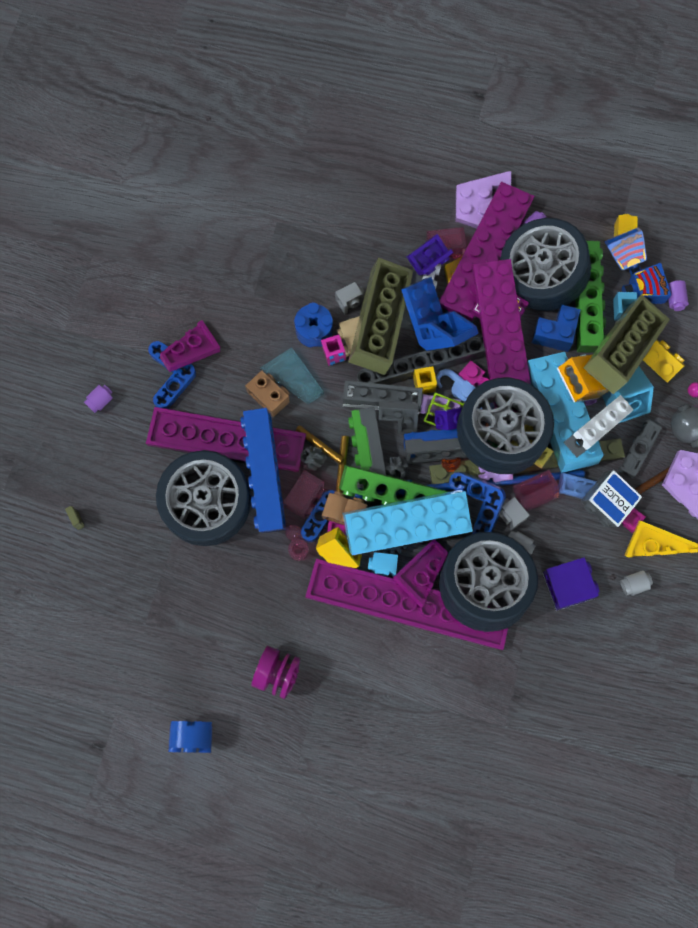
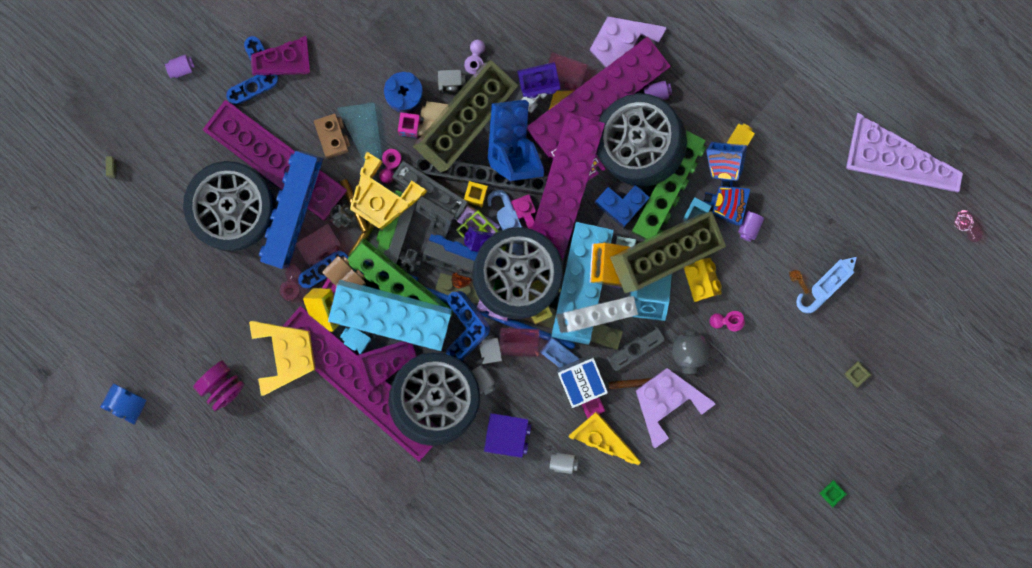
camera: 25 degrees right, 10 degrees up
(331, 607) = (291, 351): none -> yellow wing
(335, 404) = (386, 174): none -> dark pink plate
(341, 428) = (378, 203): none -> yellow wing
(359, 261) = (477, 47): none -> lavender plate

